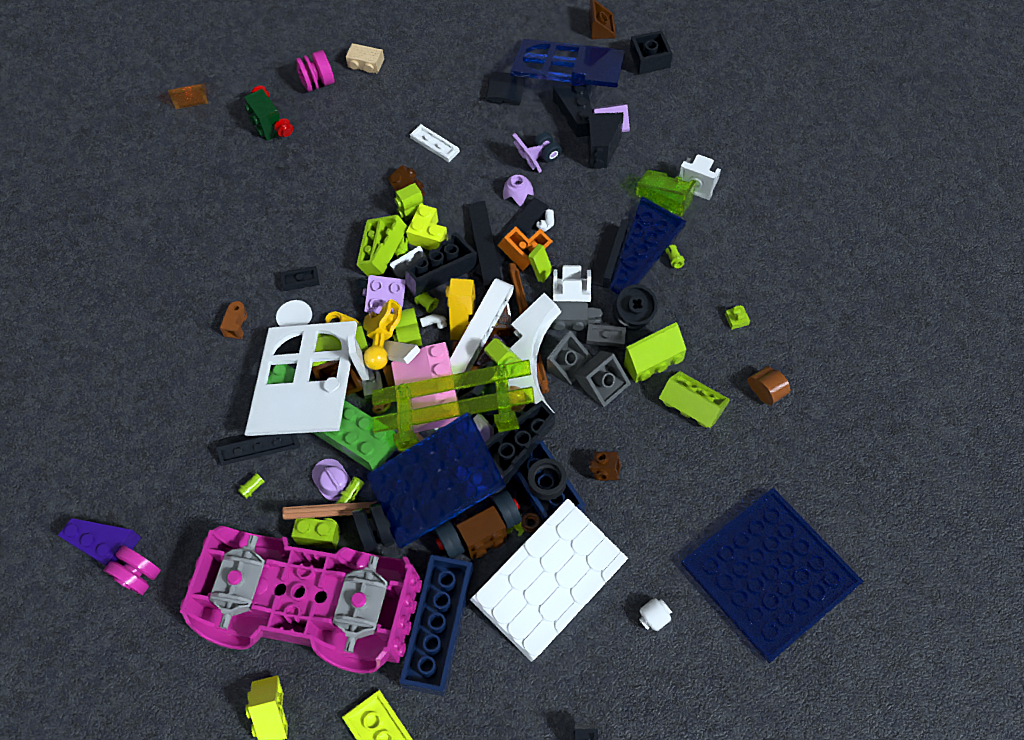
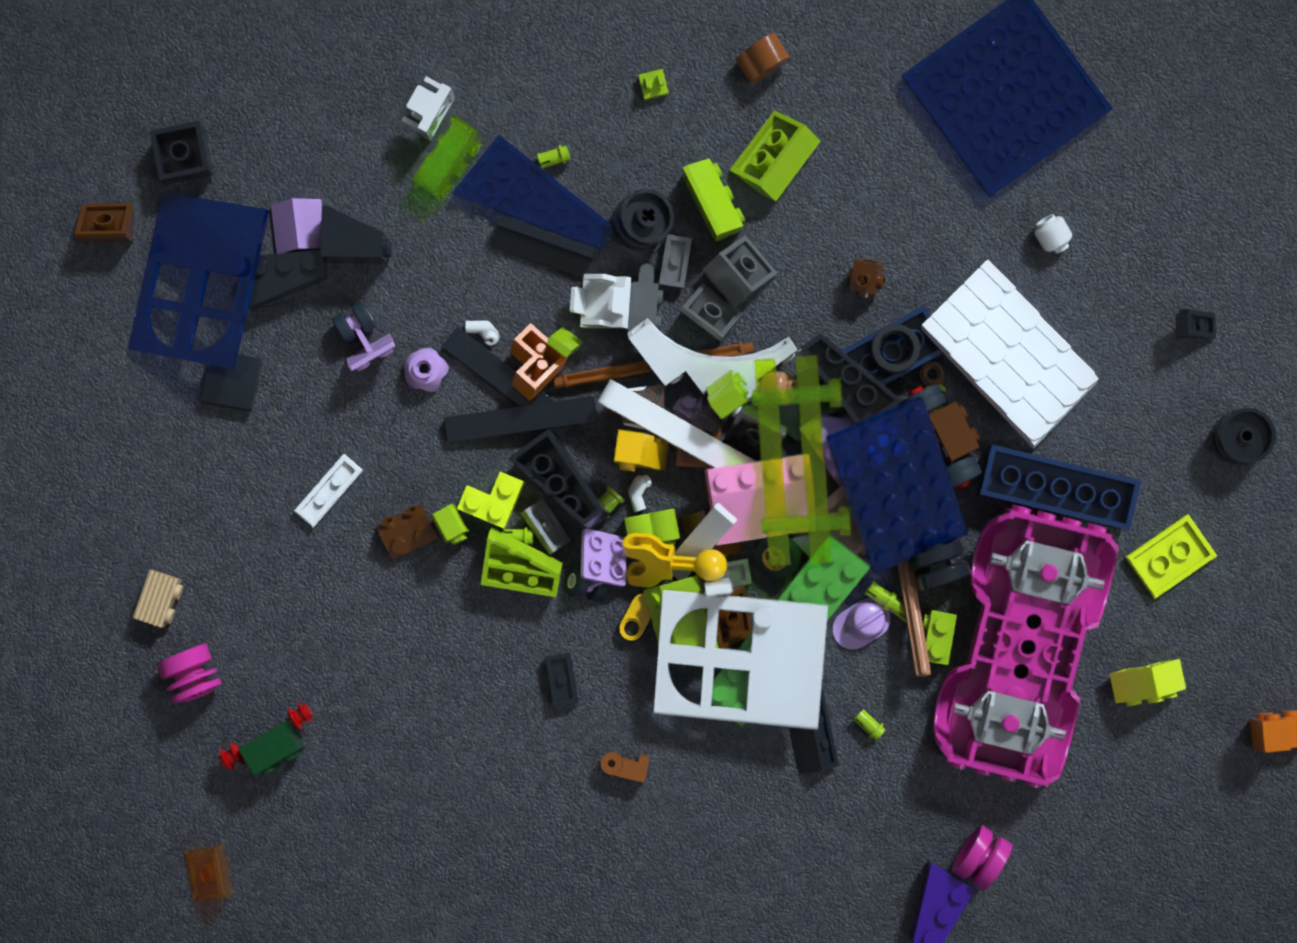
camera: 90 degrees left, 25 degrees up
(294, 314) = (616, 686): white sticker -> none

